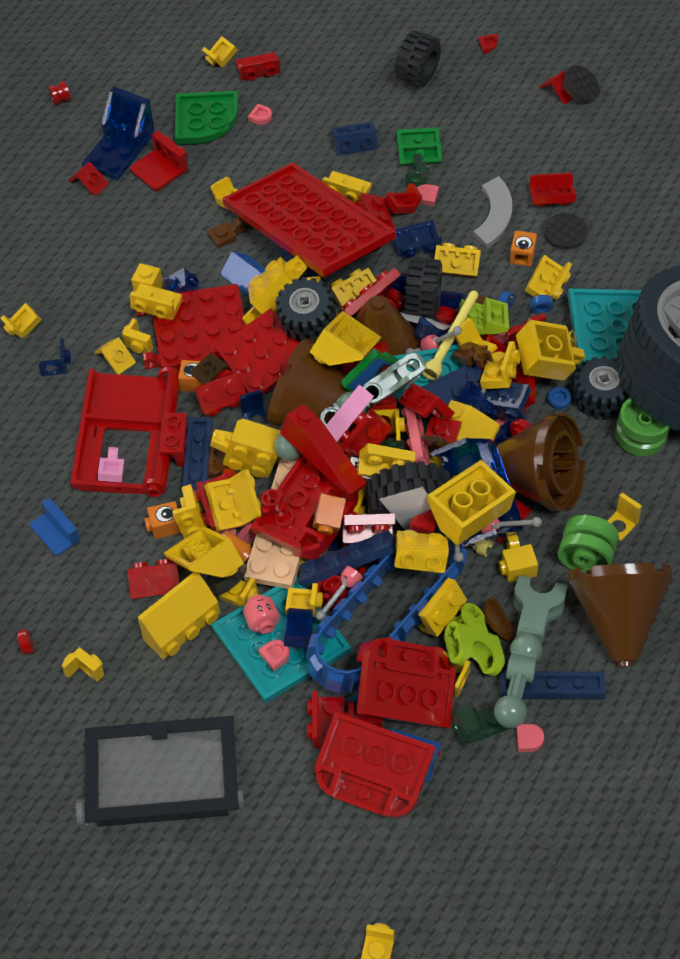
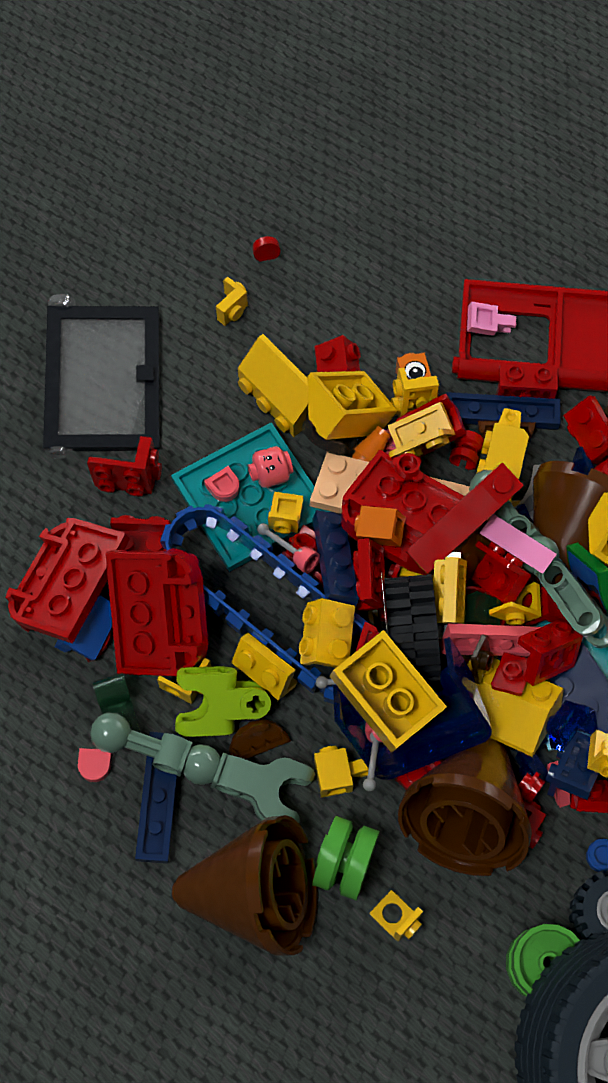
camera: 90 degrees right, 10 degrees up
(55, 528) = (410, 272): blue panel -> none
(240, 593) = (311, 457): yellow bracket -> none
(263, 714) = (132, 477): none -> red bracket
(298, 628) = (247, 506): clear blue bracket -> none

